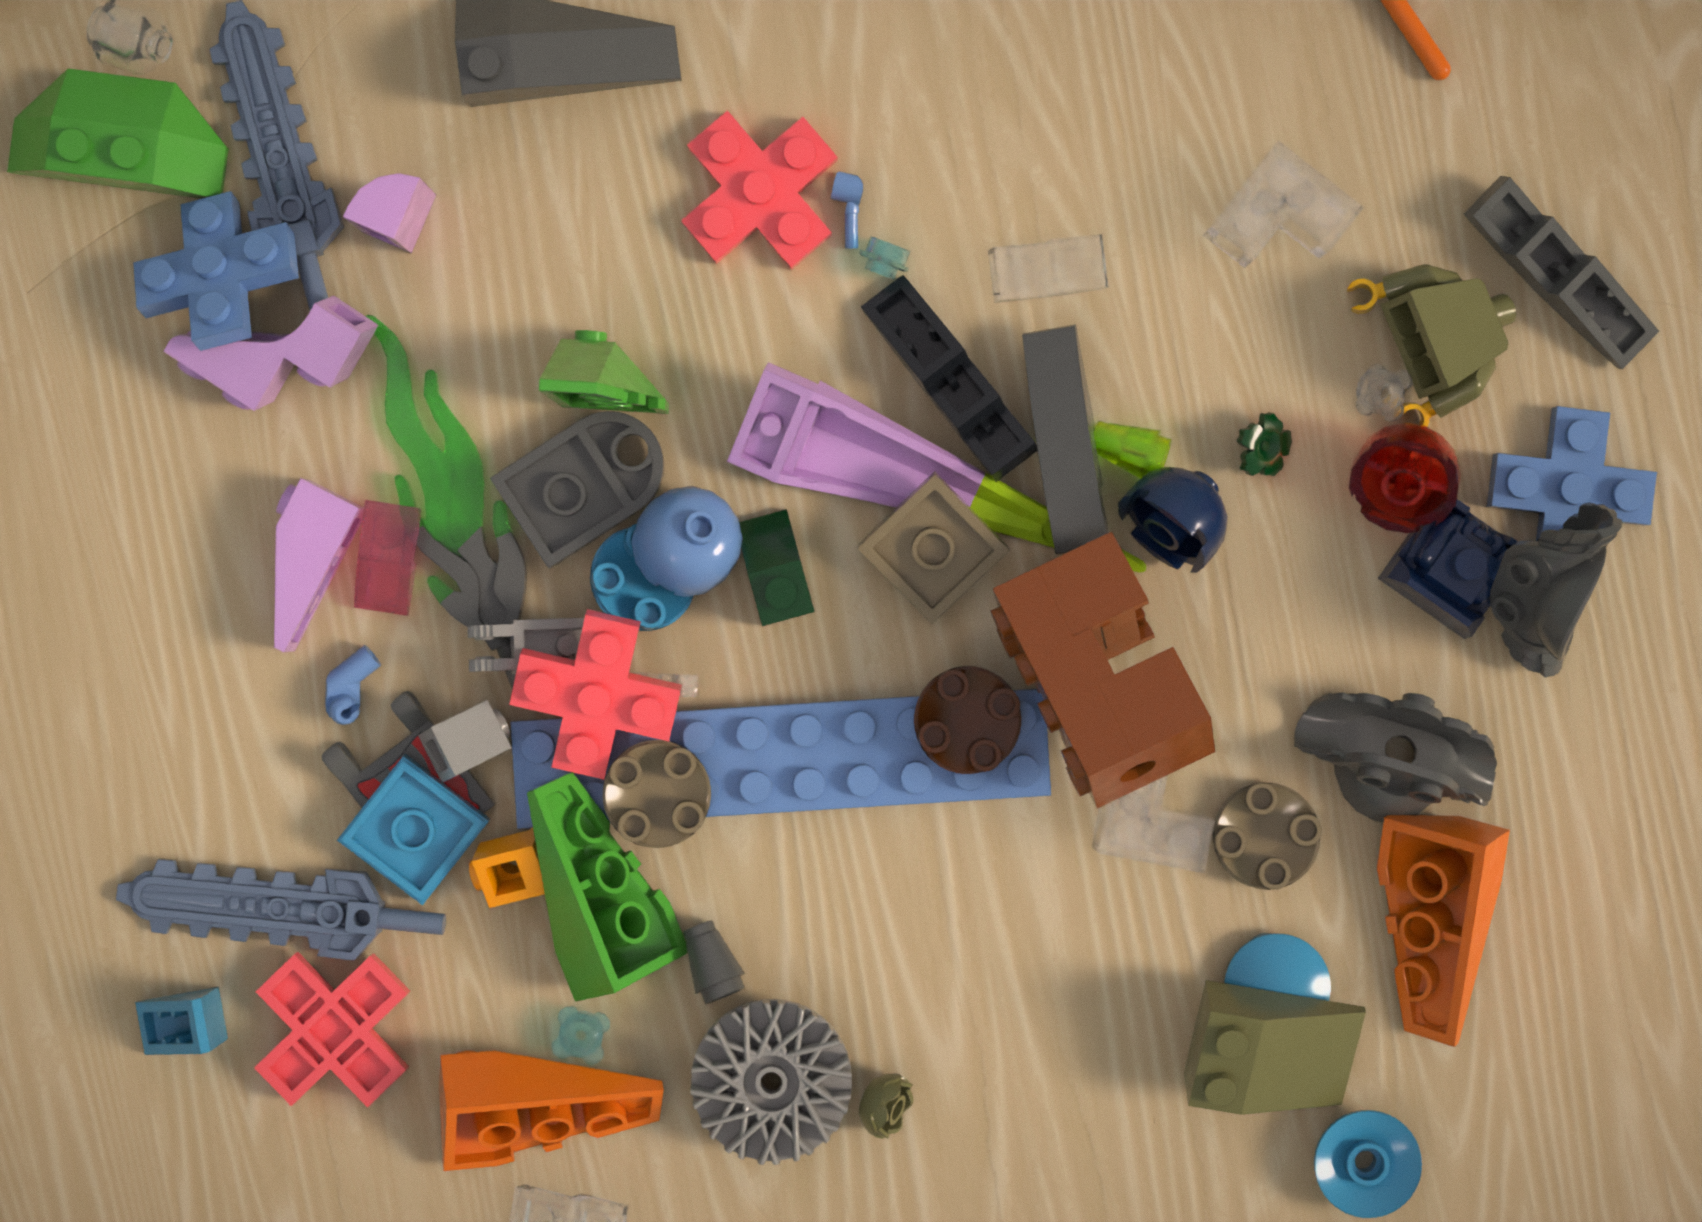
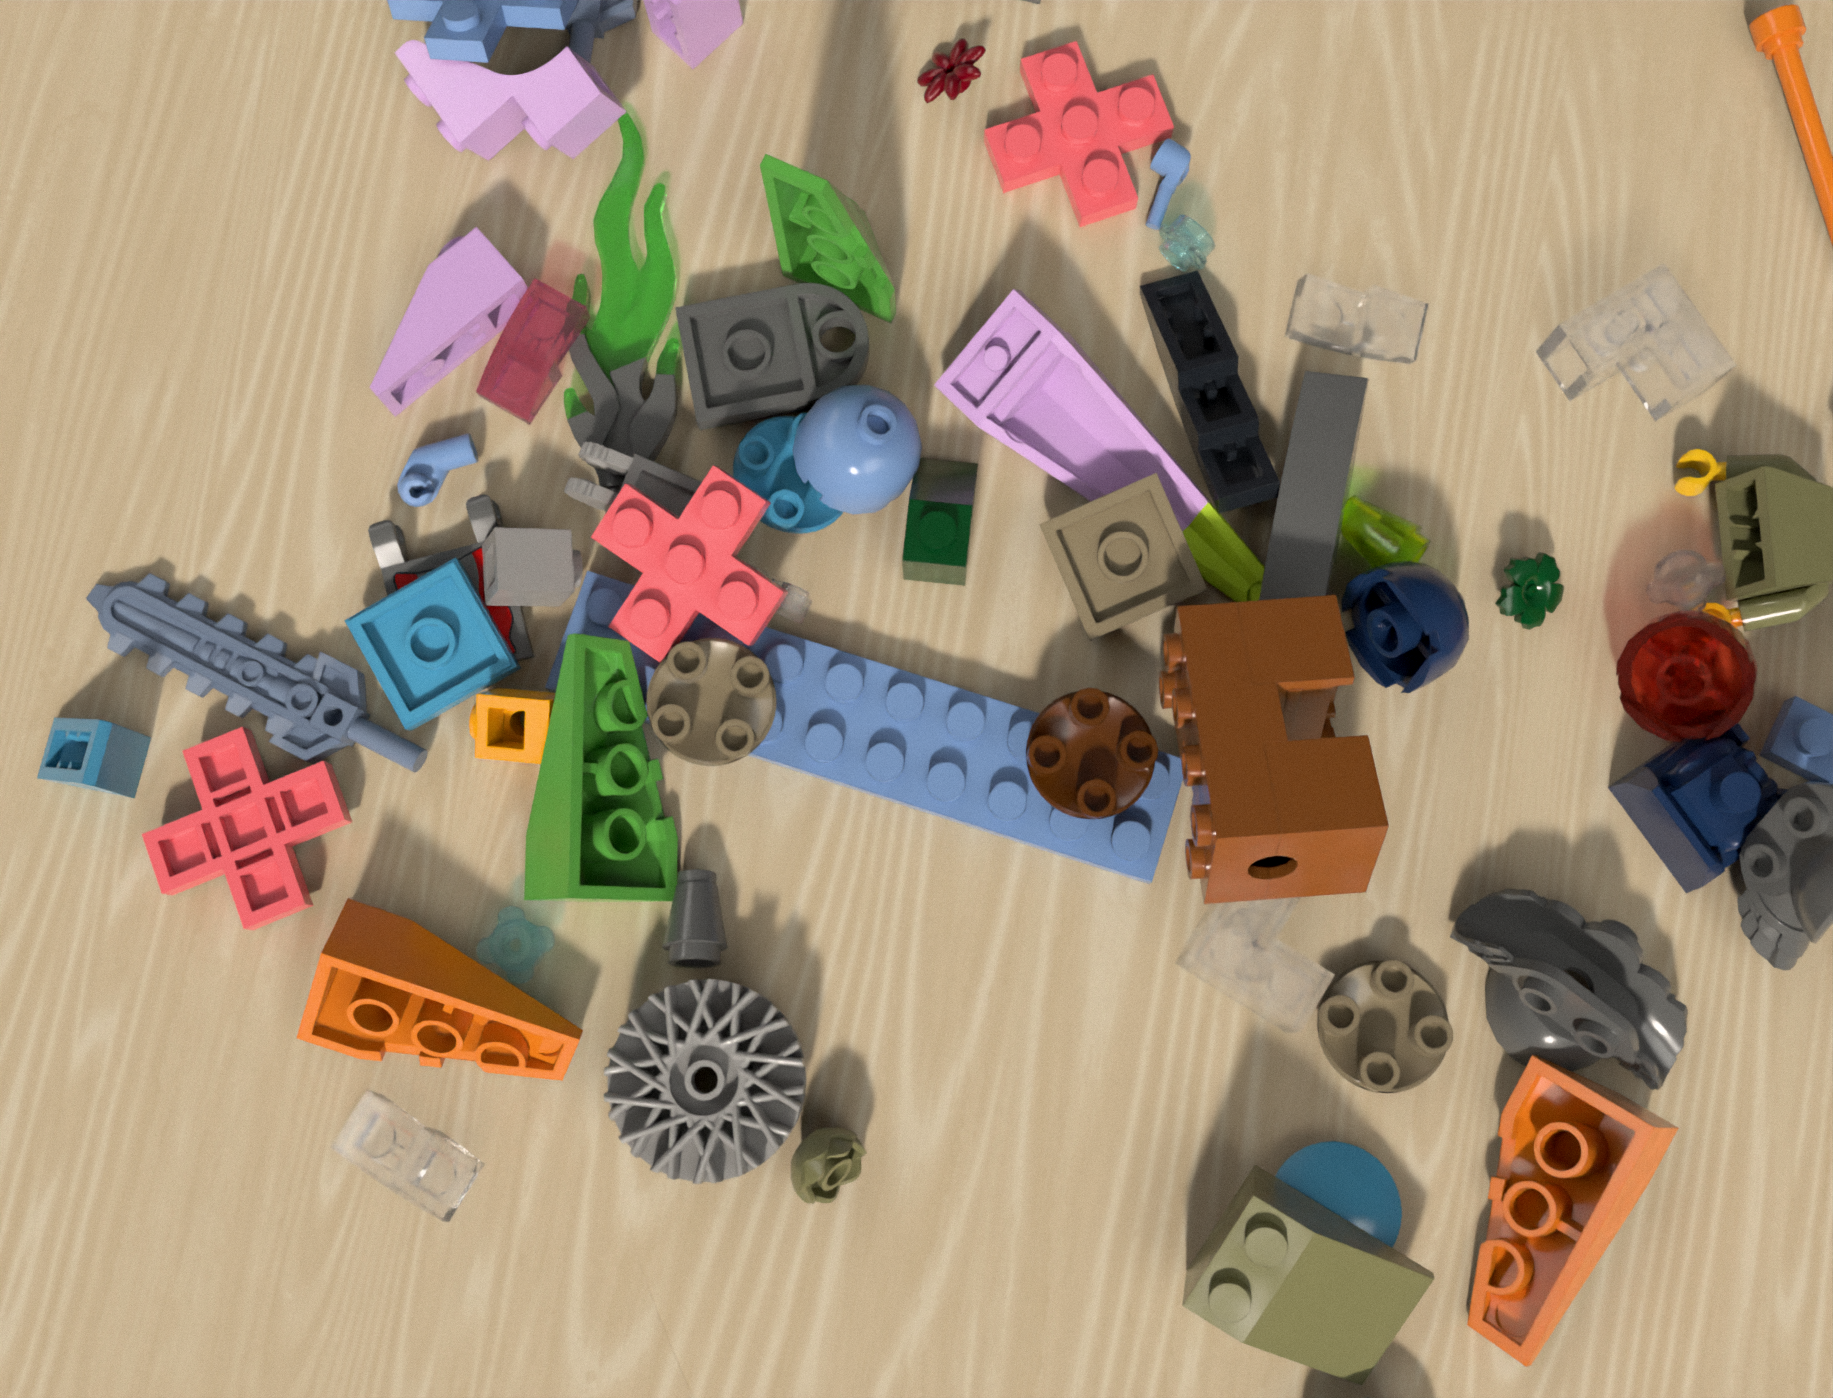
camera: 25 degrees right, 10 degrees down
(633, 178) = (951, 72): none -> dark red plant

